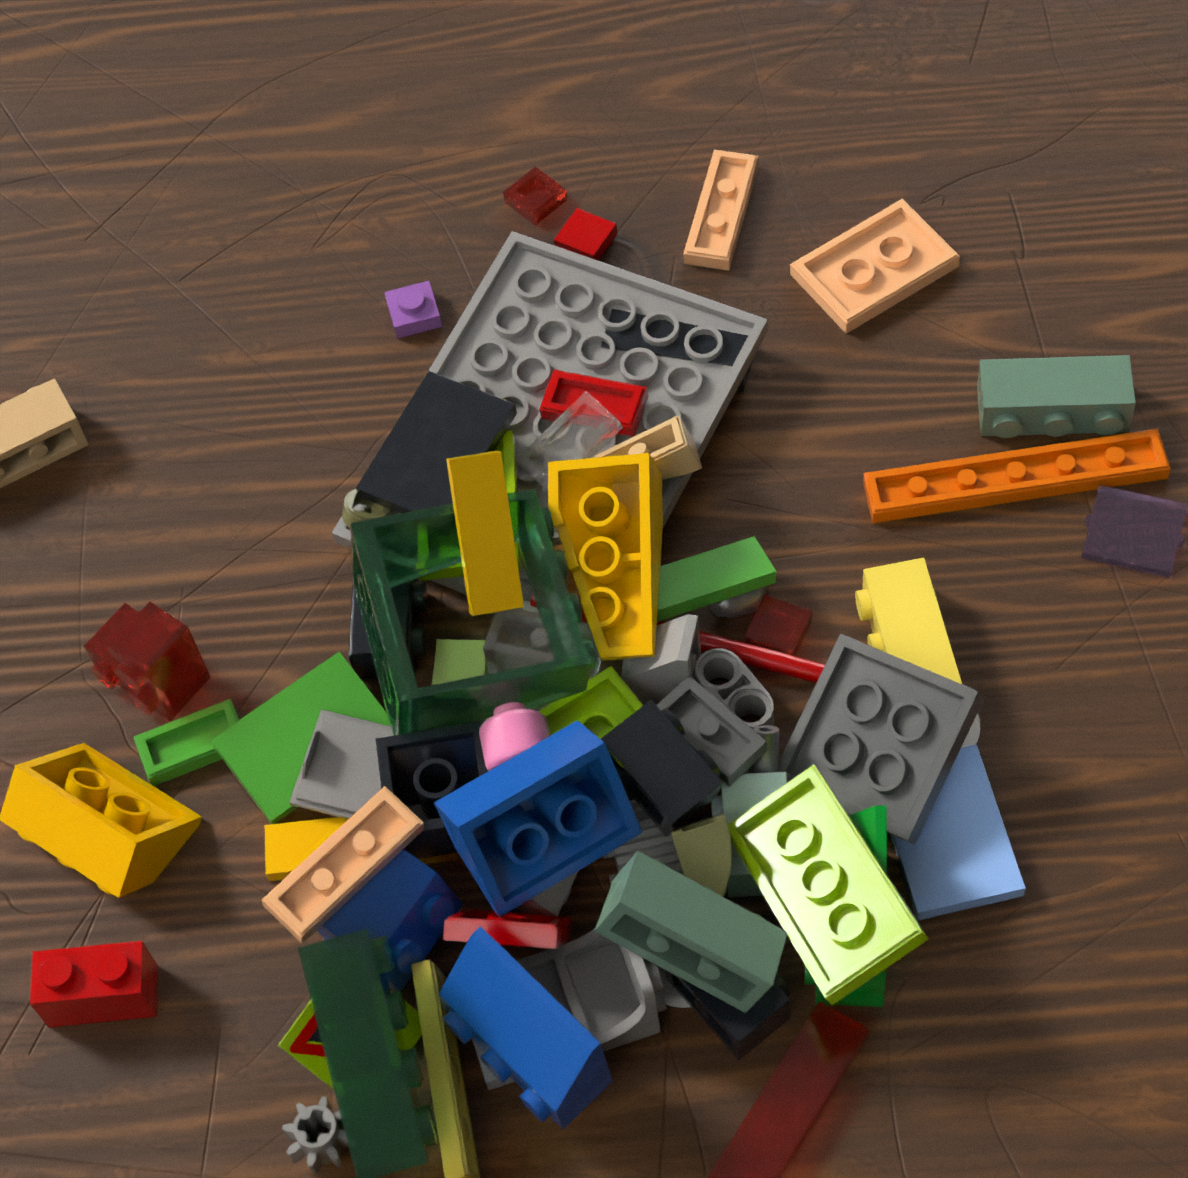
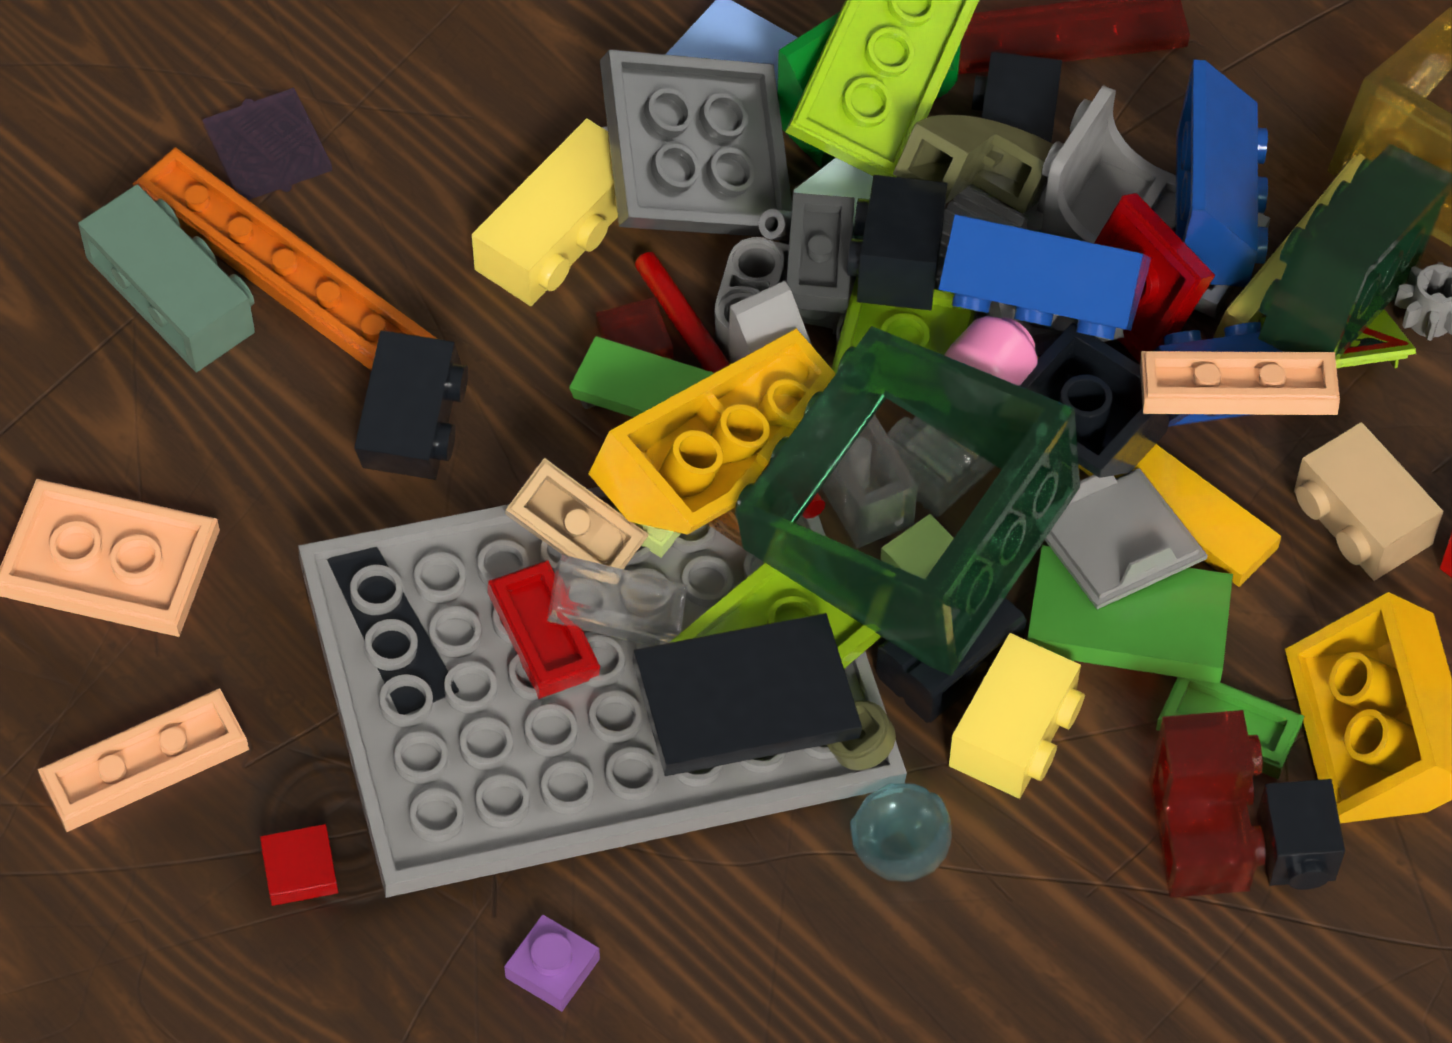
camera: 140 degrees left, 0 degrees up
(85, 705) = (1301, 833): none -> black brick
(228, 942) = (1367, 501): none -> tan brick
(299, 501) = (902, 832): none -> clear light blue hair
(305, 614) = (1015, 716): none -> light yellow brick
(485, 532) = (823, 510): yellow tile -> none
(535, 196) = (279, 970): clear red tile -> none
(692, 932) = (1030, 92): sand green brick -> none
(827, 451) = (410, 405): none -> black brick

